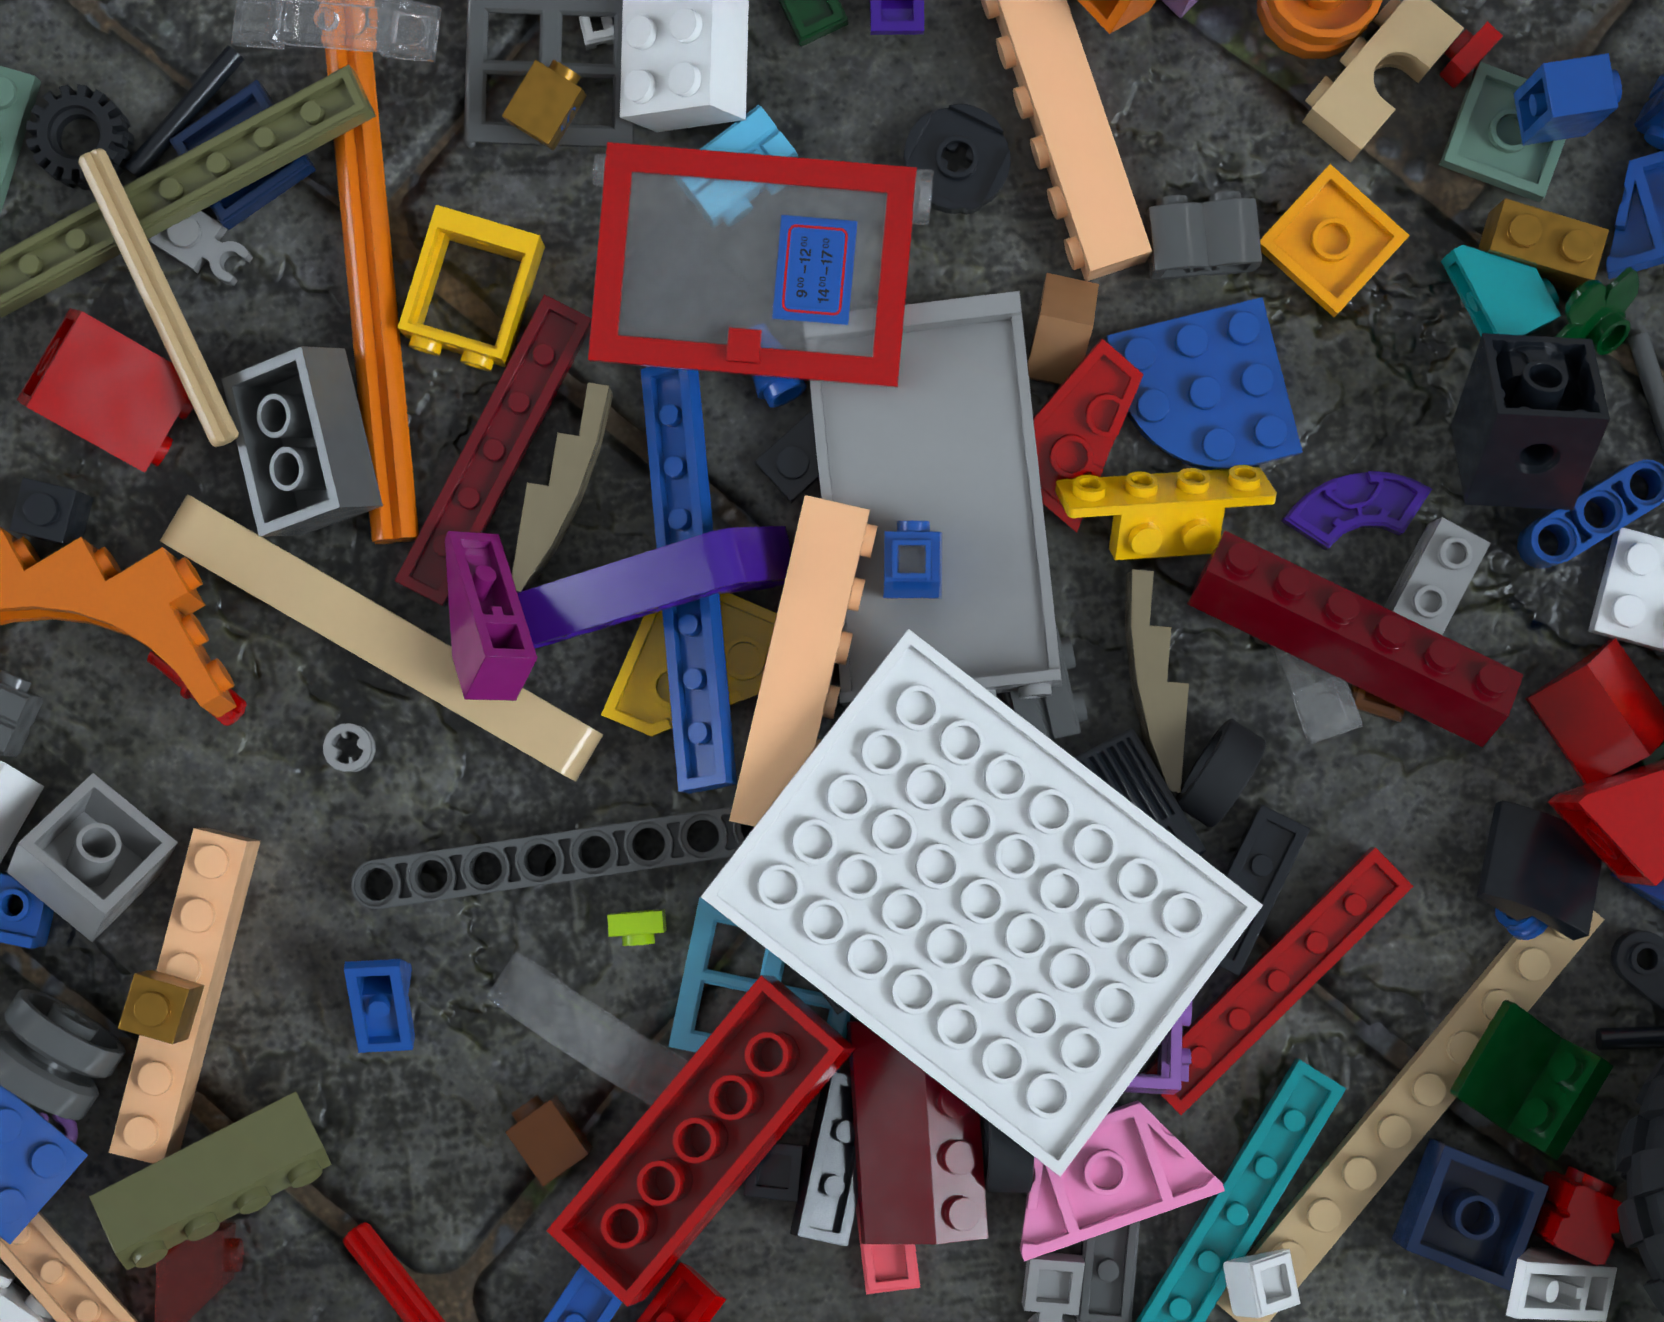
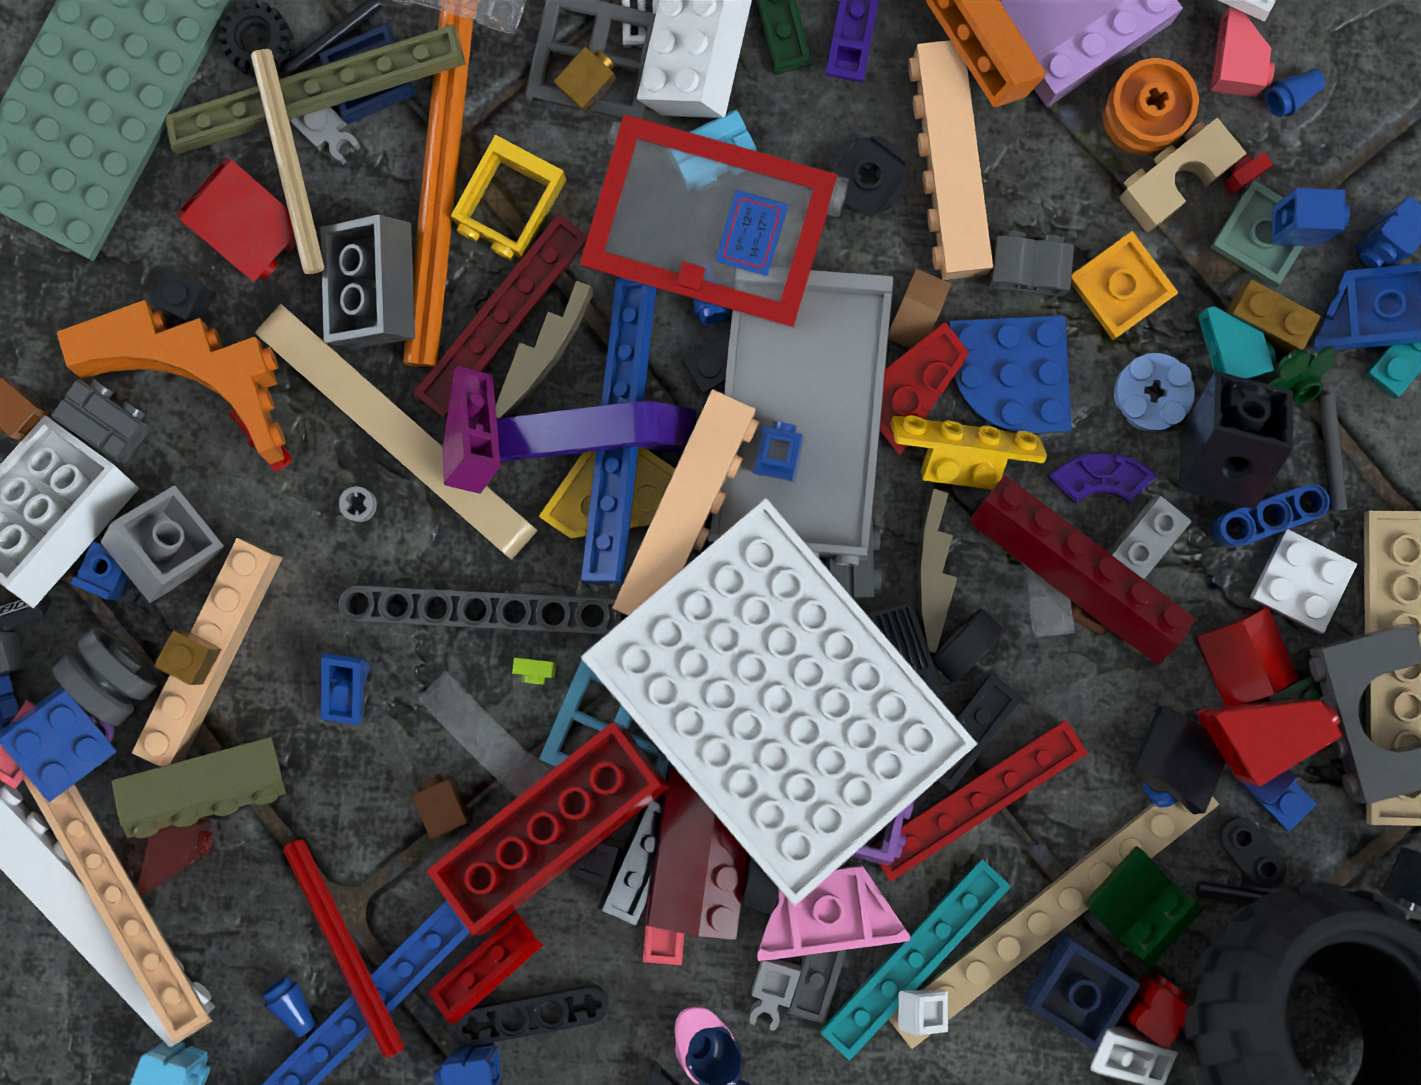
camera: 20 degrees right, 0 degrees up
(1424, 353) = (1172, 378): none -> light blue plate

